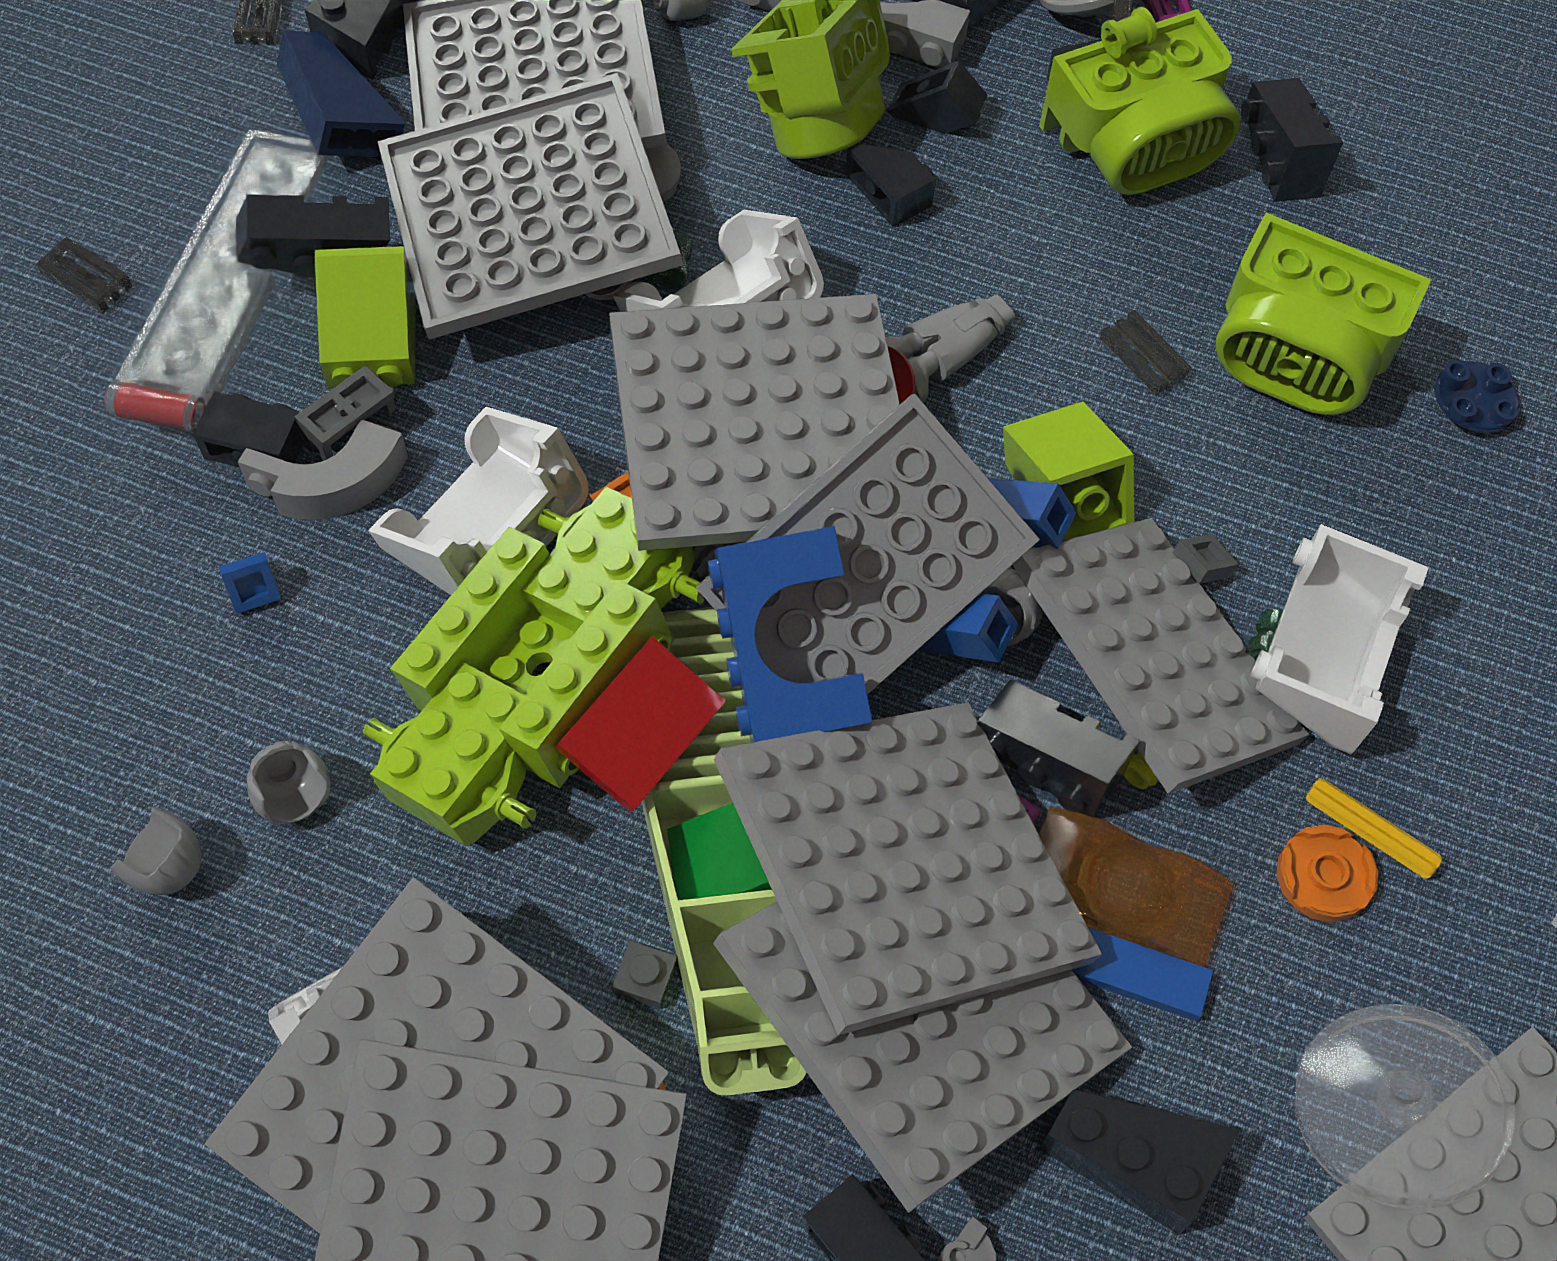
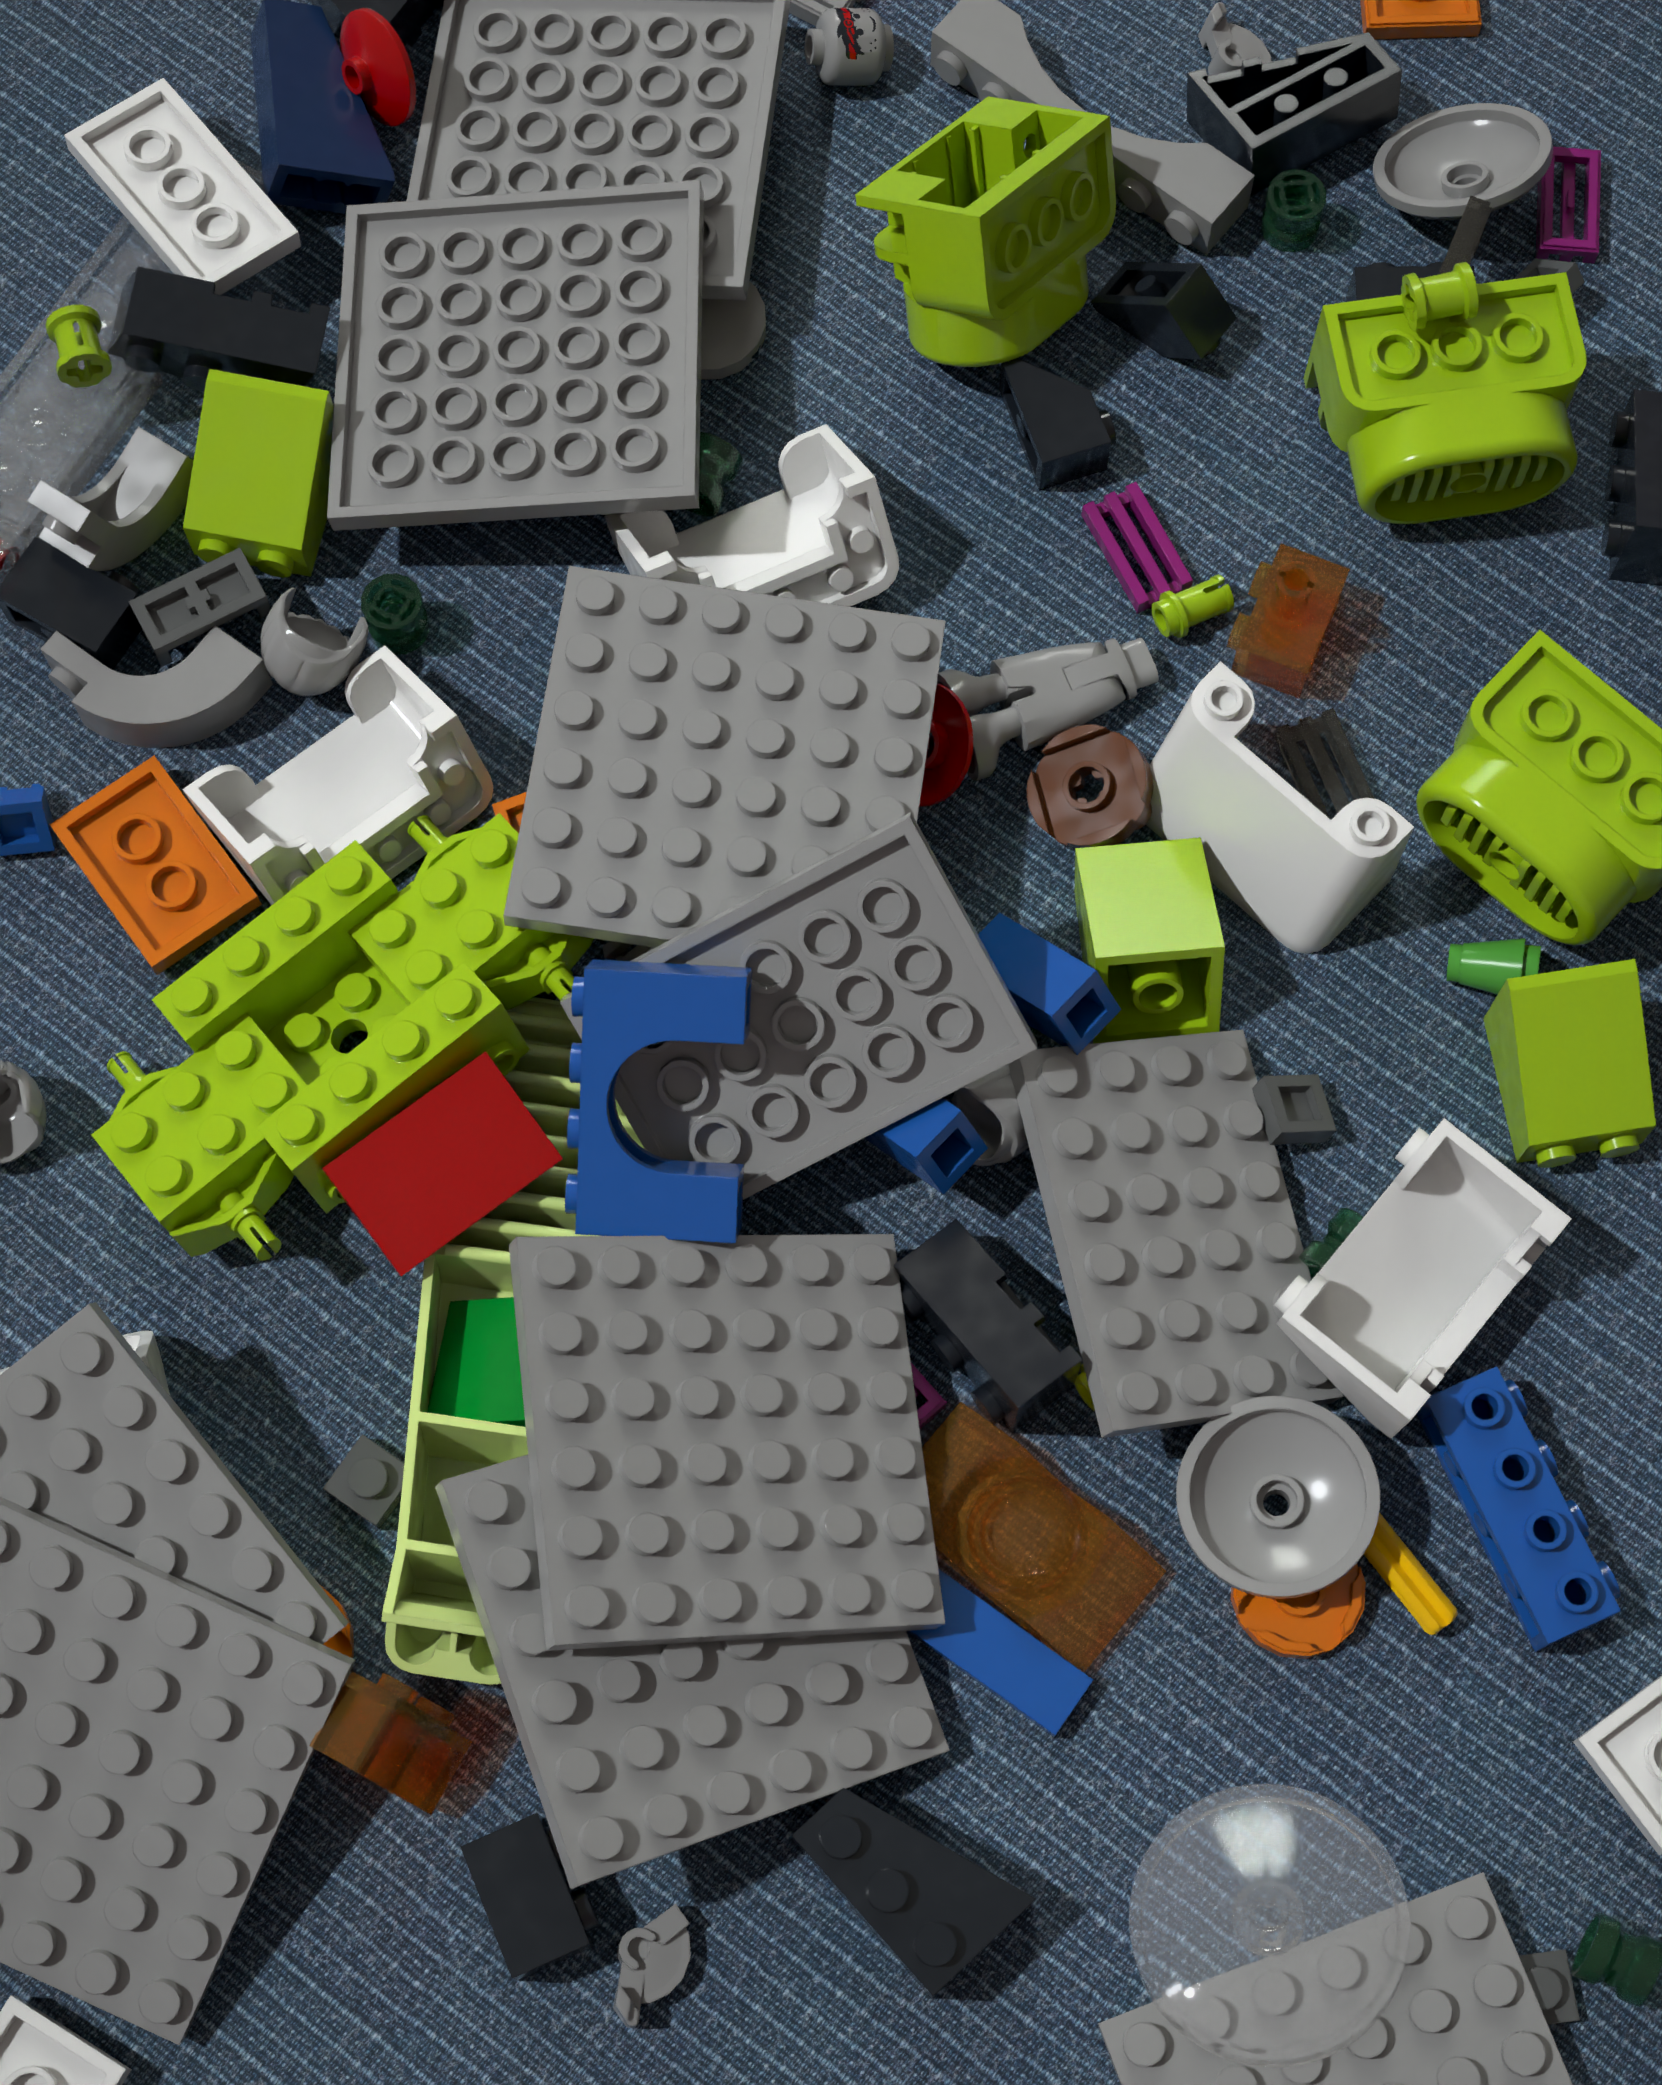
camera: 20 degrees right, 10 degrees up
(214, 259) = (78, 345): none -> lime bush
(257, 152) = (182, 189): none -> white plate
(274, 361) = (123, 510): none -> light grey arch
(359, 589) = (155, 864): none -> orange plate
(374, 55) = (377, 67): none -> red dish
(429, 428) = (306, 652): none -> light grey hair
(484, 386) = (399, 627): none -> clear green wheel
(727, 1150) = (393, 1741): none -> clear orange brick
(975, 241) = (1160, 542): none -> magenta tile
(998, 30) = (1293, 210): none -> clear green wheel
(1003, 367) = (1121, 804): none -> reddish brown plate
(1013, 274) = (1182, 610): none -> lime pin
(1086, 262) = (1288, 620): none -> clear orange brick
(1133, 387) = (1258, 833): none -> white windscreen
(1301, 440) = (1491, 963): none -> bright green cone
(1306, 780) = (1286, 1451): none -> light grey dish
(1376, 479) = (1572, 1062): none -> lime slope
(1456, 778) = (1519, 1509): none -> blue brick

